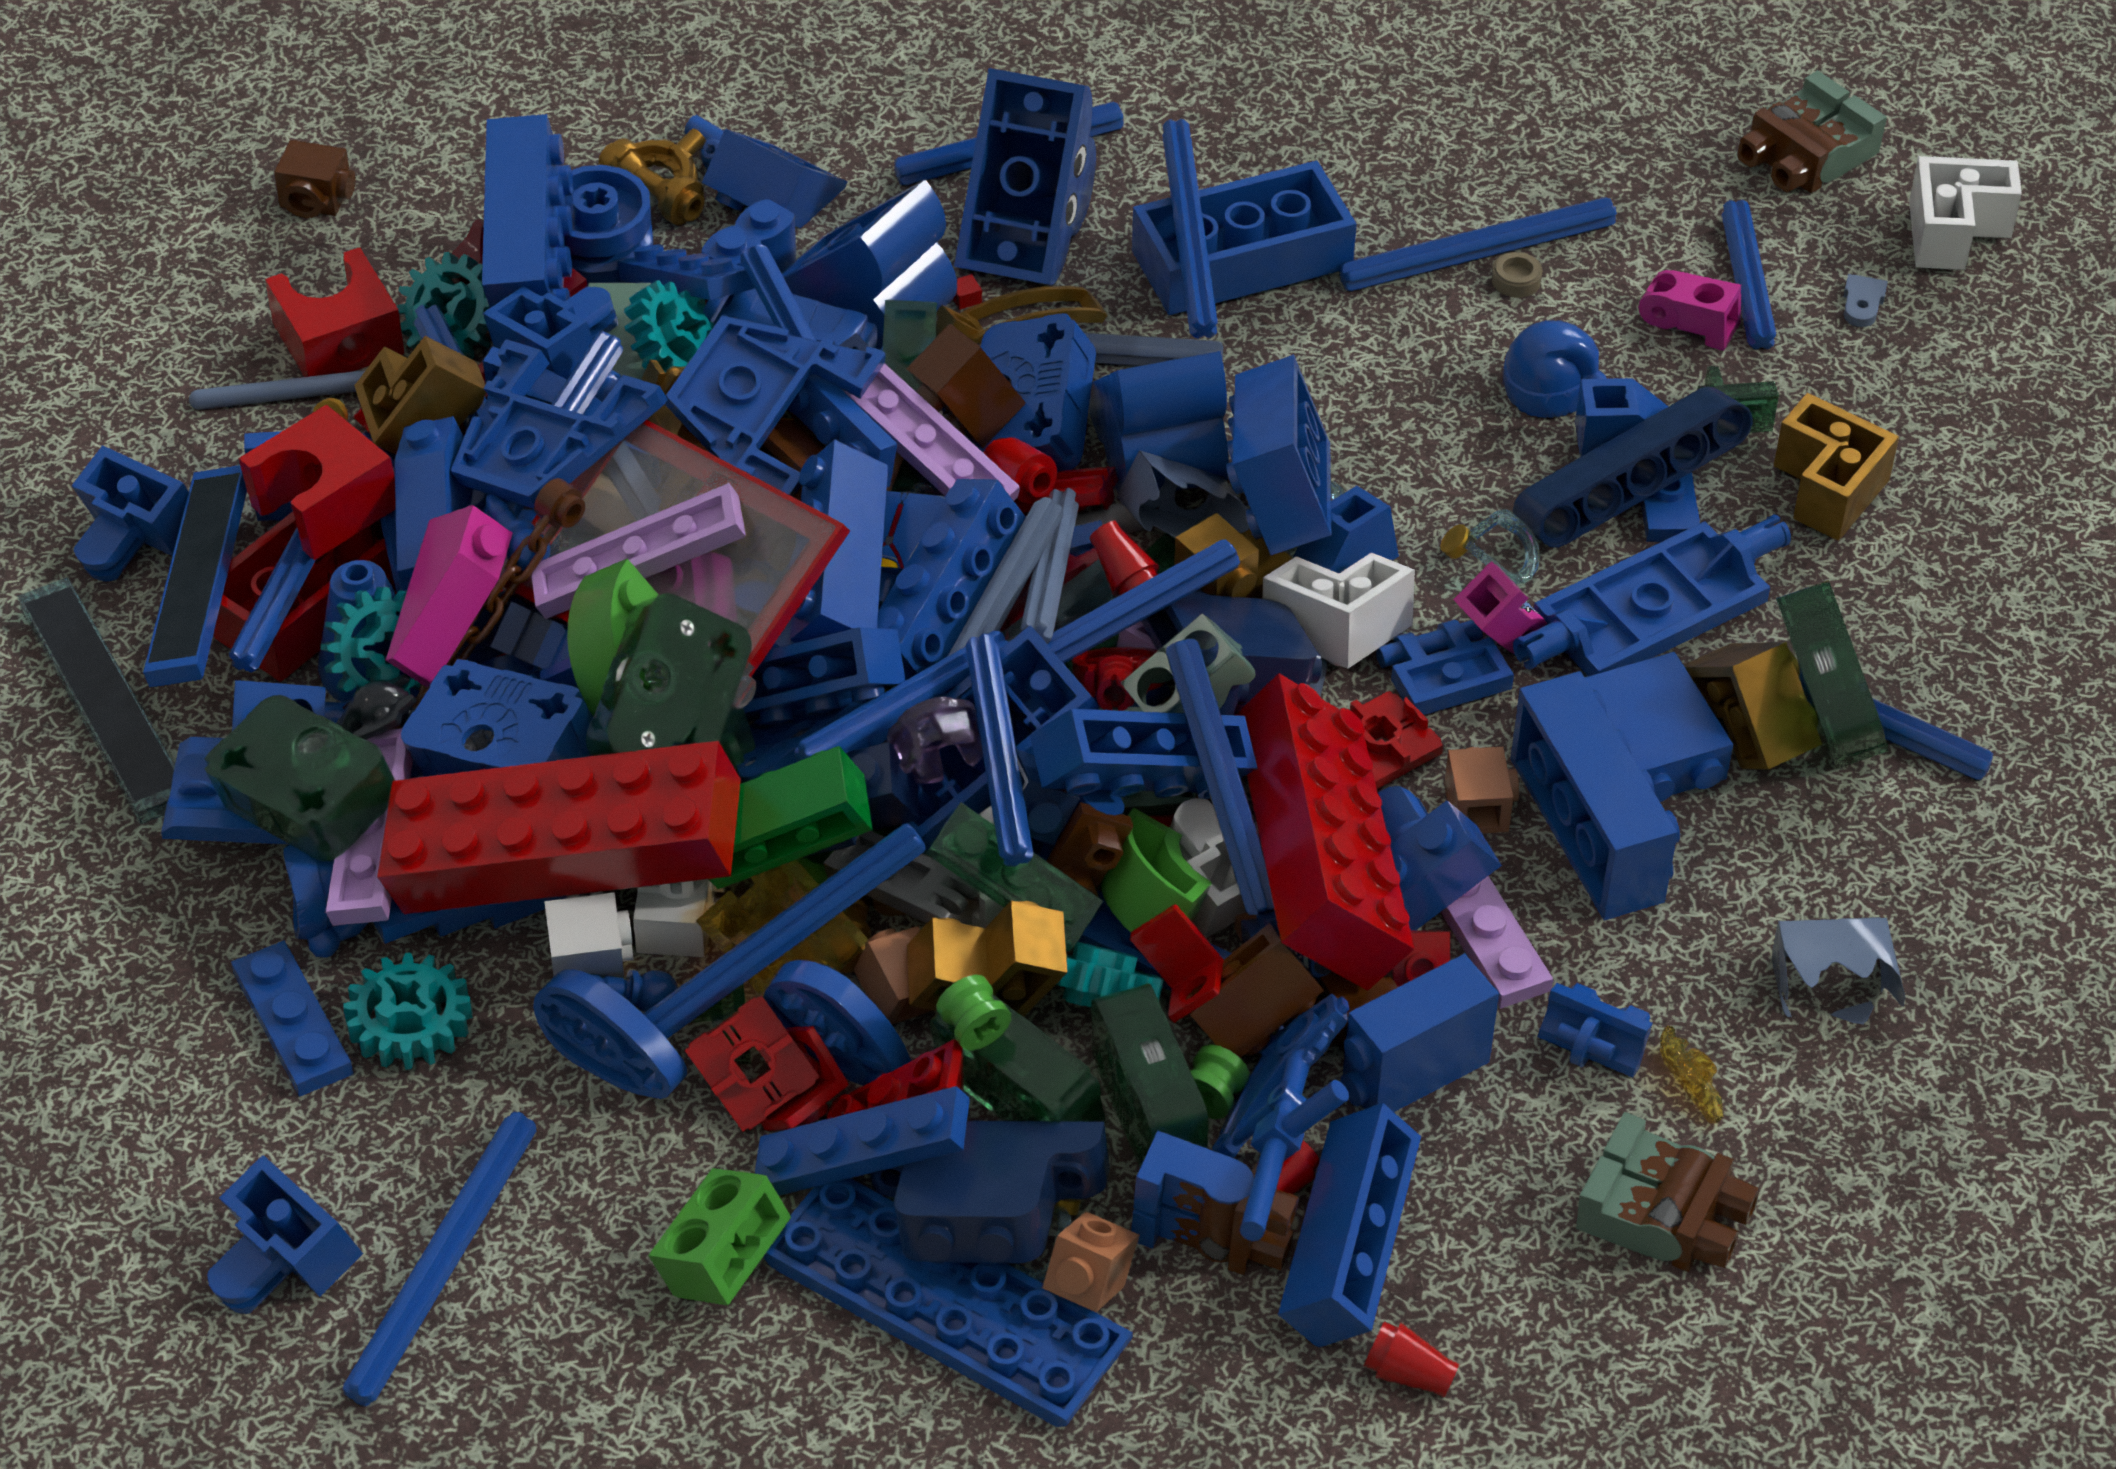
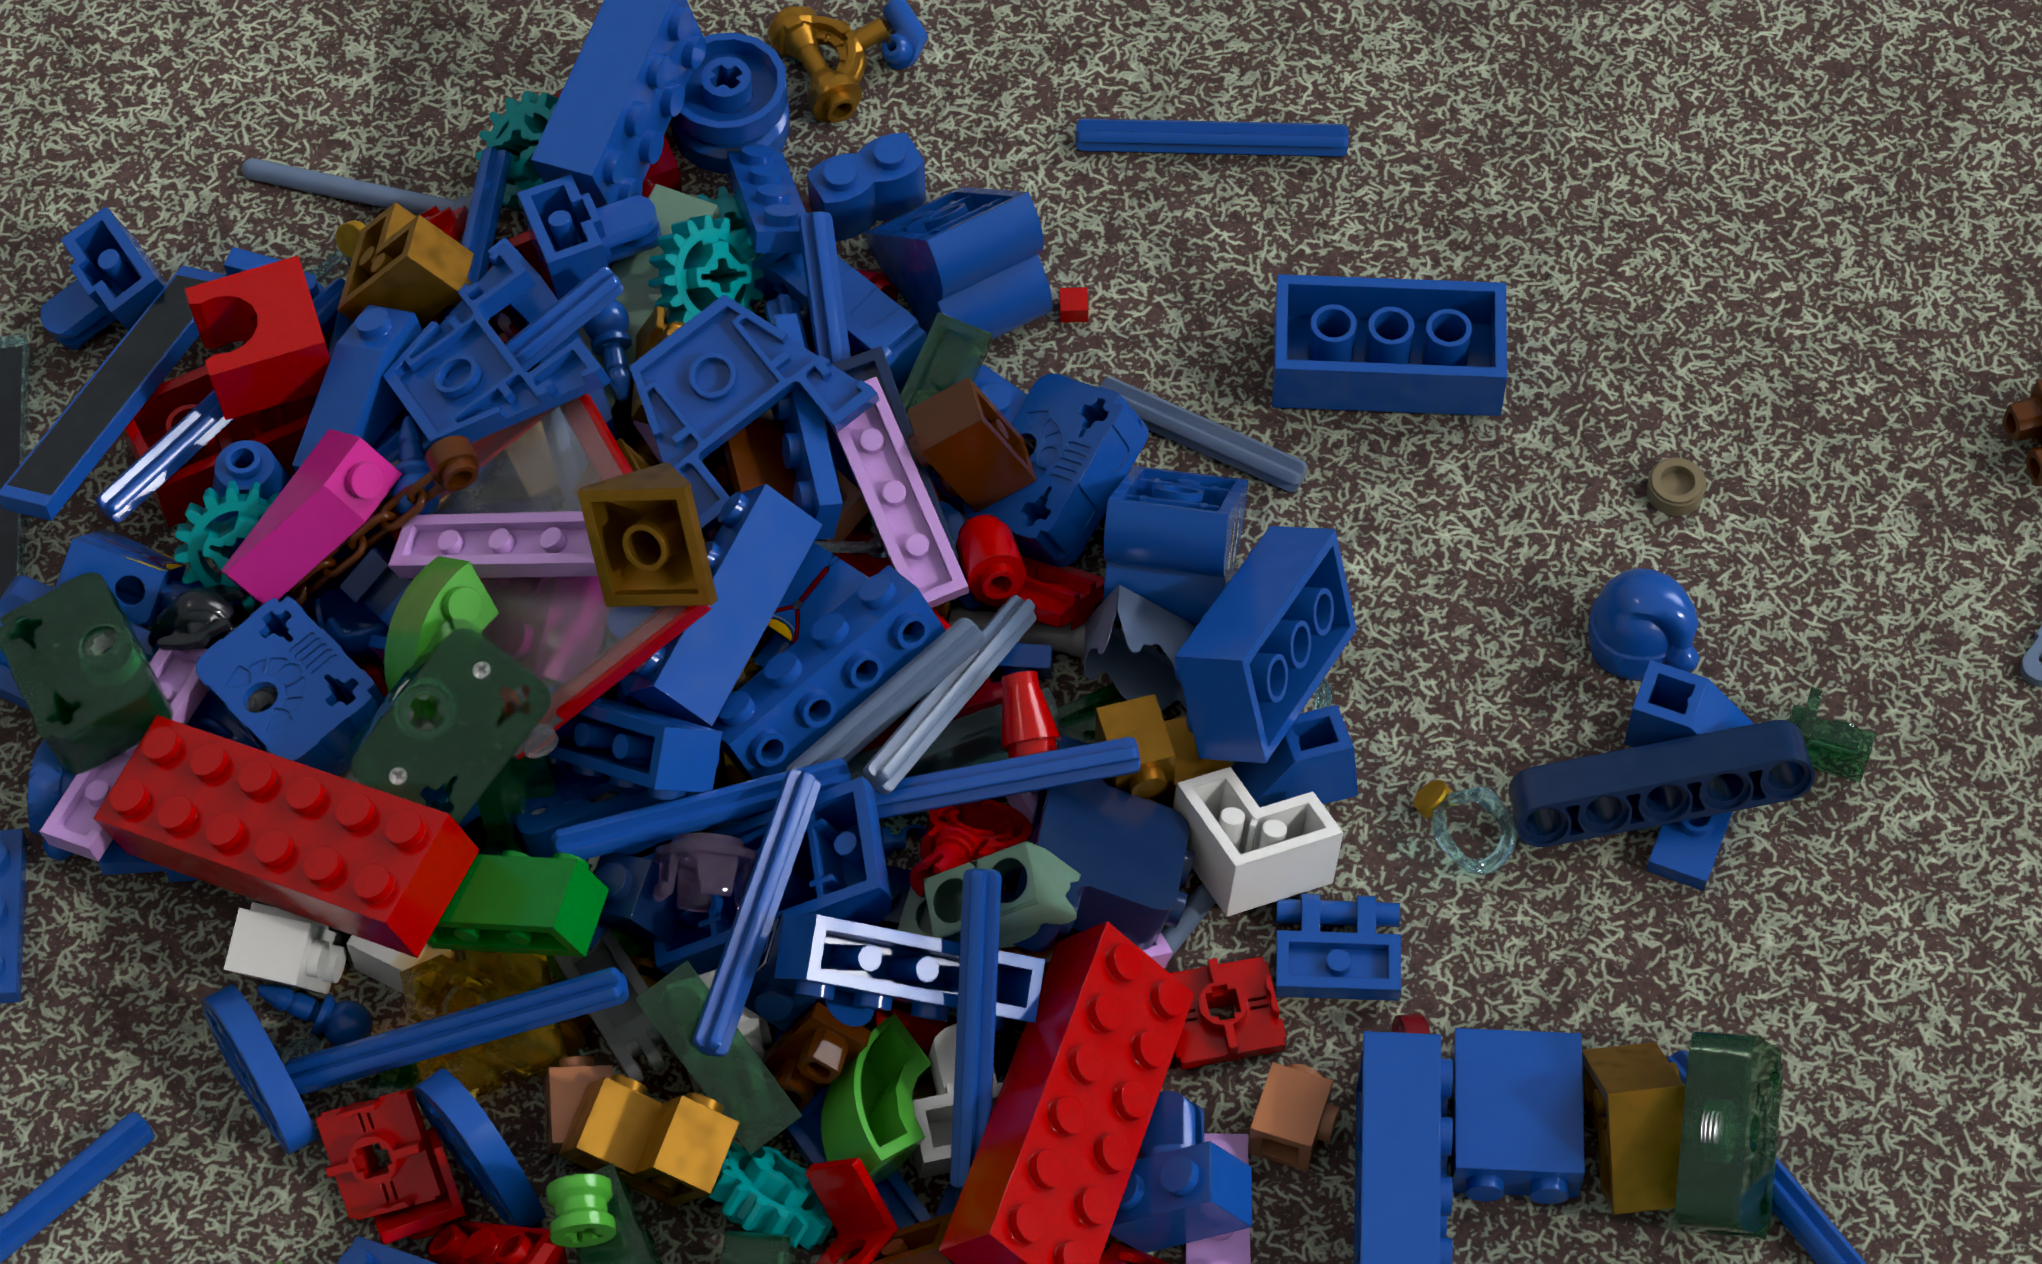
camera: 25 degrees right, 10 degrees up
(337, 330) = (420, 140): red piece -> none
(407, 1010) = (126, 950): teal gear -> none
(755, 170) = (938, 101): blue slope -> none
(781, 486) = (647, 539): none -> pearl gold slope
(968, 322) = (1057, 349): pearl gold sword -> none
(1027, 177) = (1183, 205): blue brick -> none
(1189, 229) = (1317, 326): blue axle -> none
(1477, 244) = (1653, 434): blue axle -> none
(1499, 607) = (1427, 916): dark pink leg -> none
(1654, 598) = (1605, 952): blue plate -> none
(1693, 305) = (1846, 599): dark pink leg -> none
(1749, 274) = (1935, 577): blue axle -> none
(1838, 460) = (1900, 861): pearl gold brick -> none

